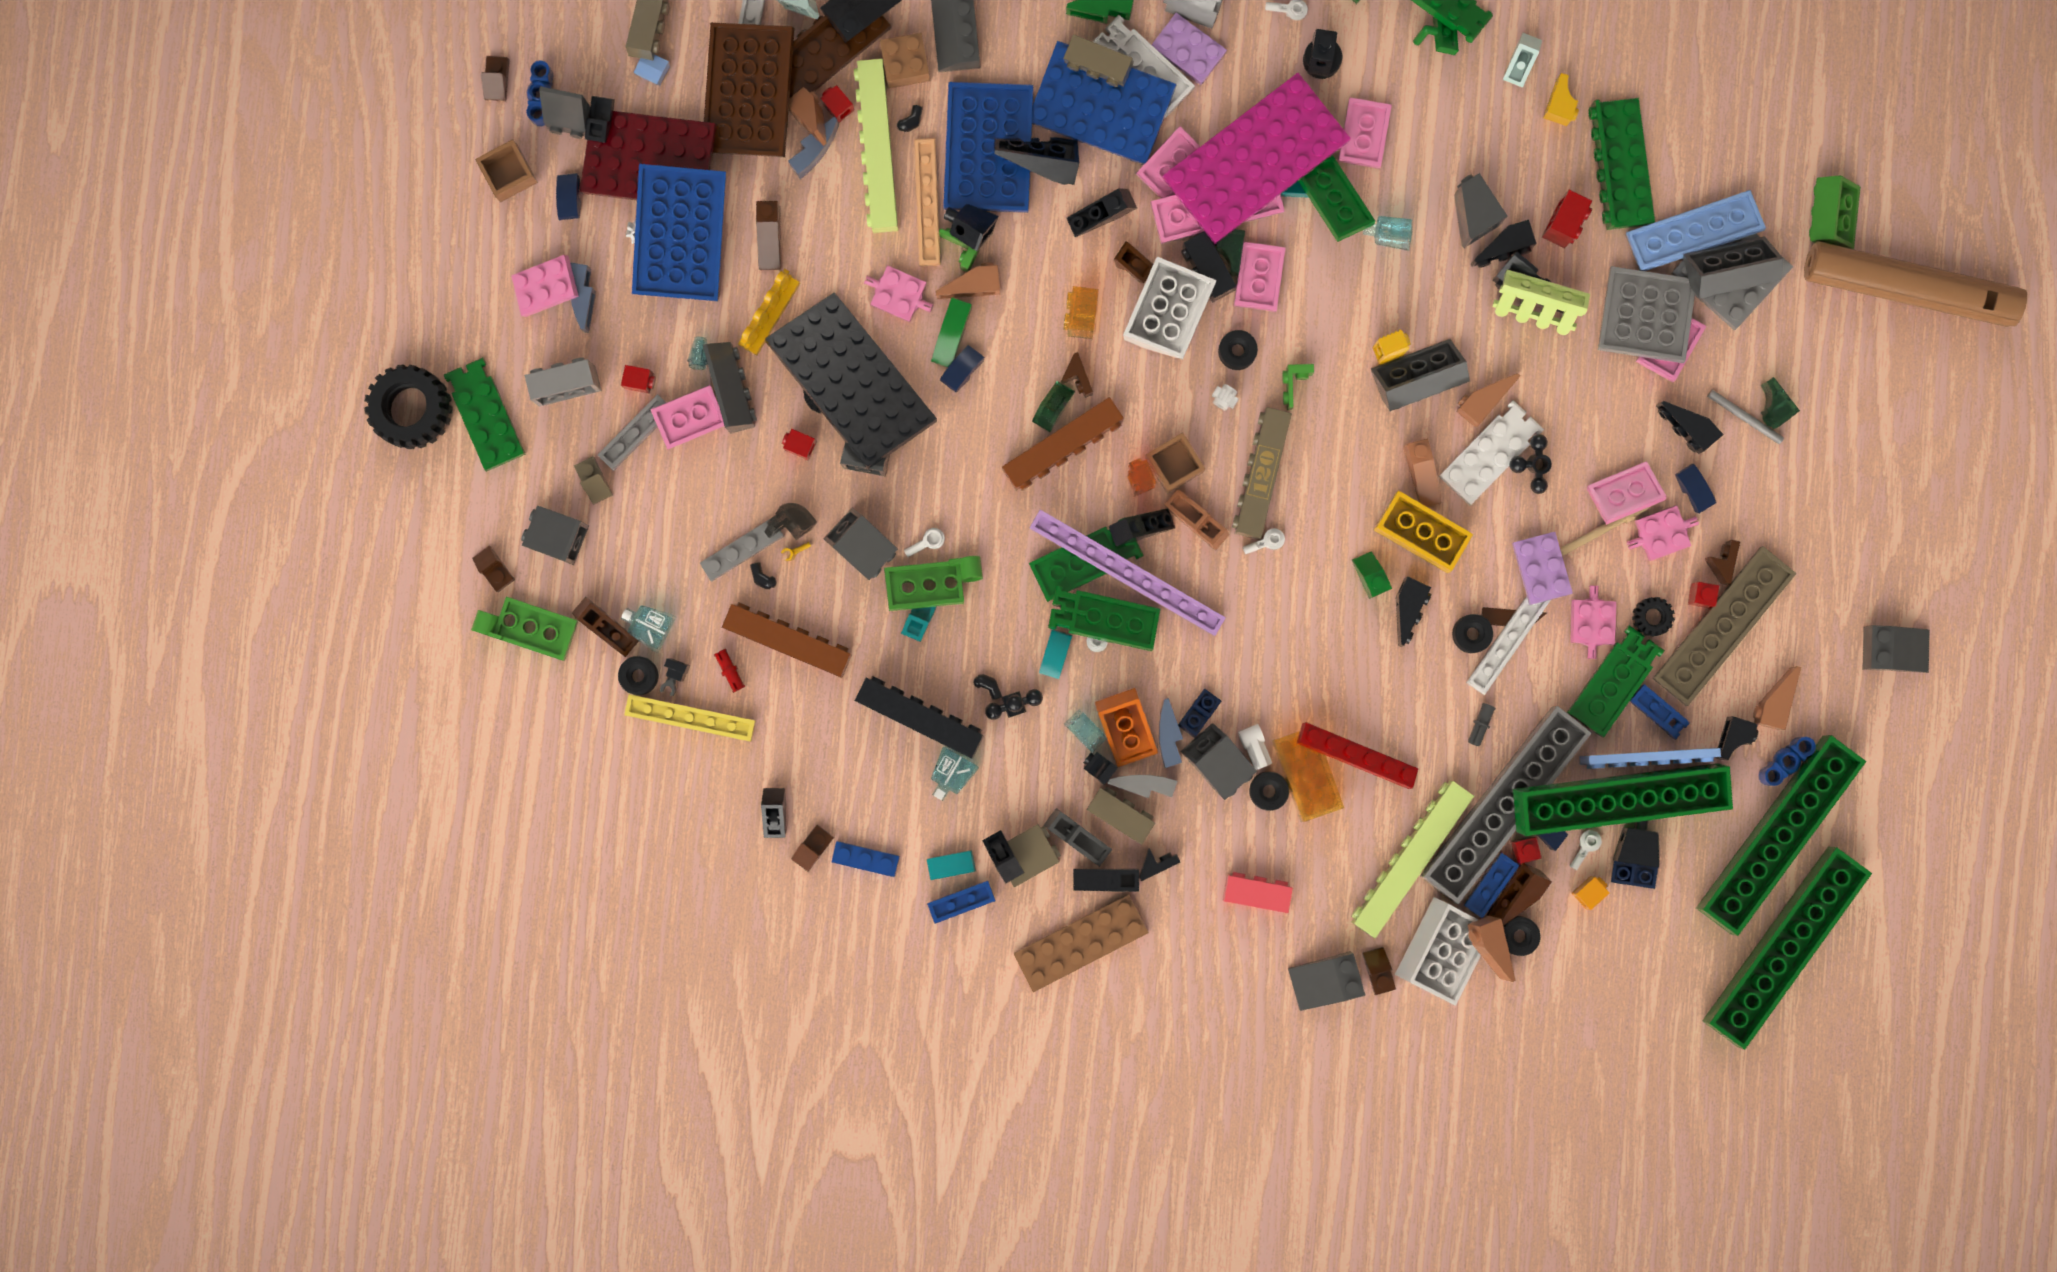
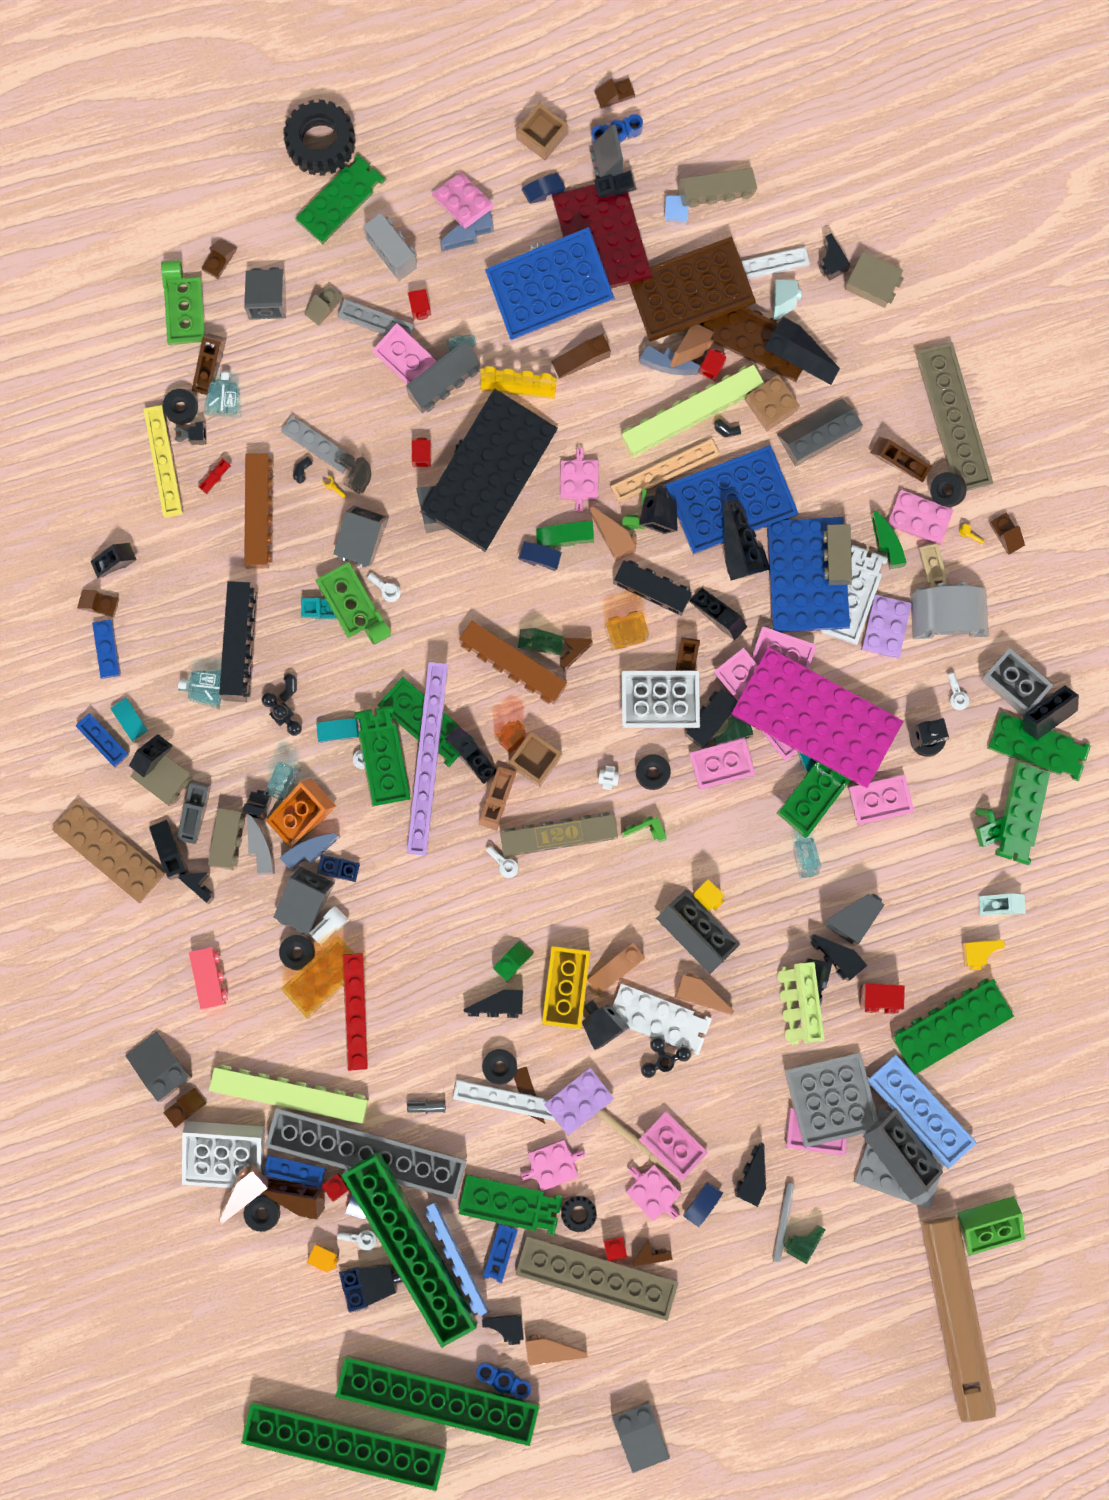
camera: 60 degrees right, 5 degrees down
(1046, 267) = (652, 587): none -> black brick
(1476, 510) = (602, 1024): none -> black torso

